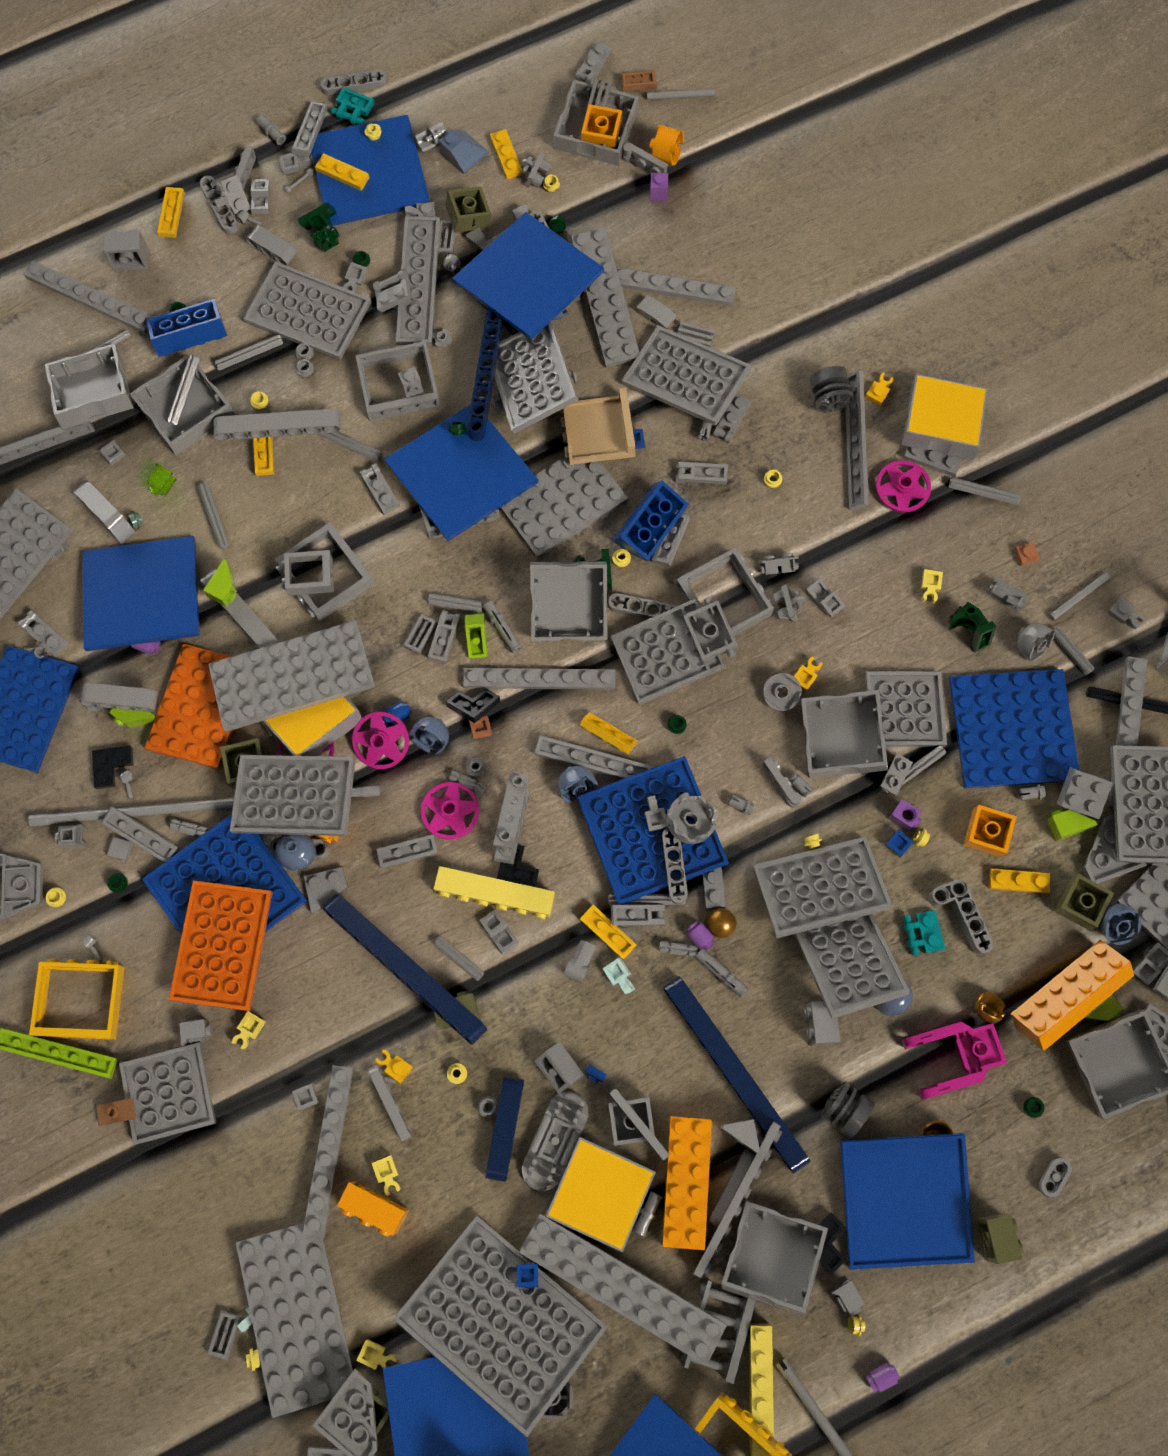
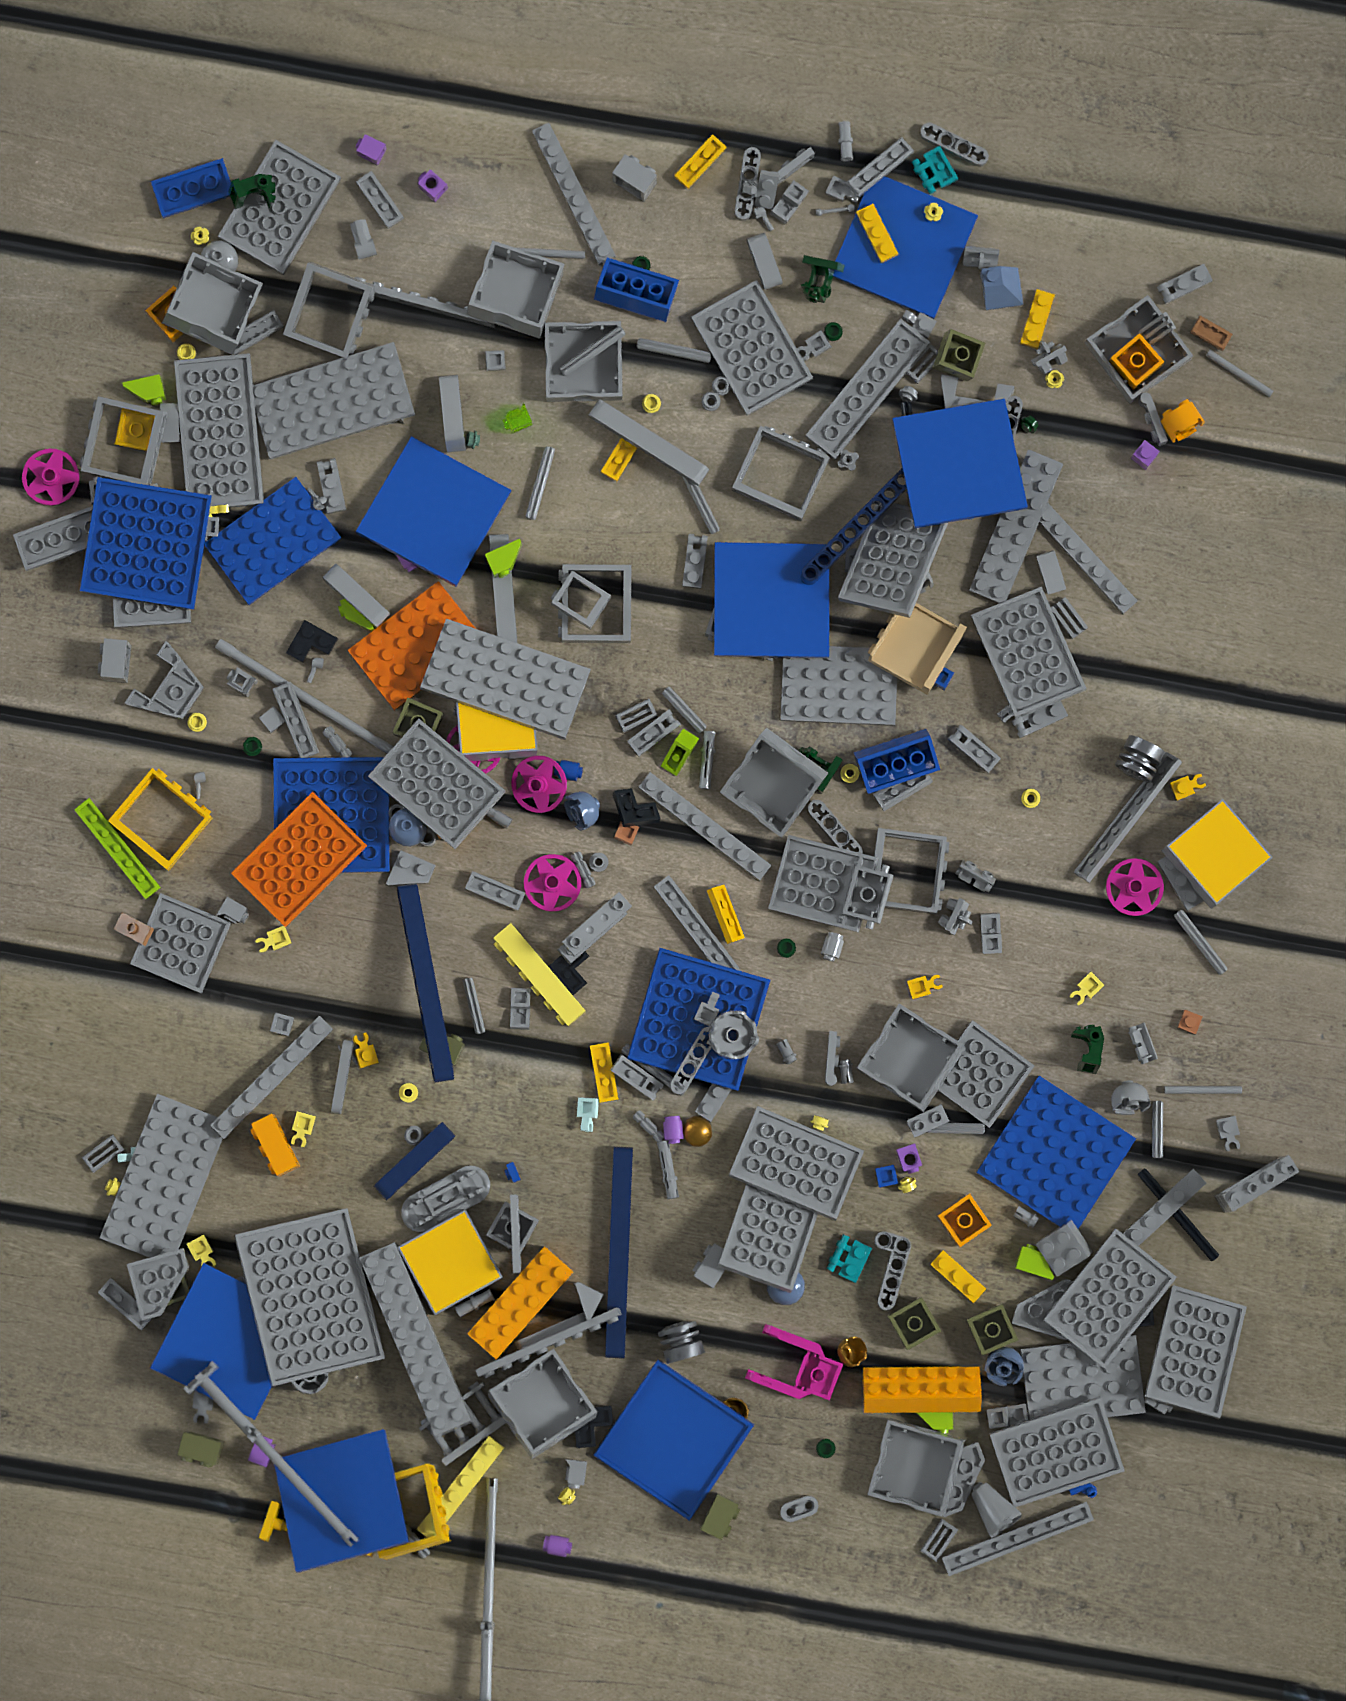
camera: 35 degrees right, 10 degrees up
(395, 295) = (834, 390): light grey plate -> none
(410, 382) = (786, 489): light grey brick -> none
(457, 428) = (795, 561): dark green plate -> none
(527, 1275) = (353, 1278): blue plate -> none
(559, 1067) = (490, 1147): light grey brick -> none
(575, 781) = (668, 935): sand blue cylinder -> none
(578, 965) = (562, 1080): light grey piece -> none
(712, 696) = (832, 946): none -> light grey brick
(784, 702) = (901, 989): light grey plate -> none
(1020, 945) = (914, 1323): none -> olive brick

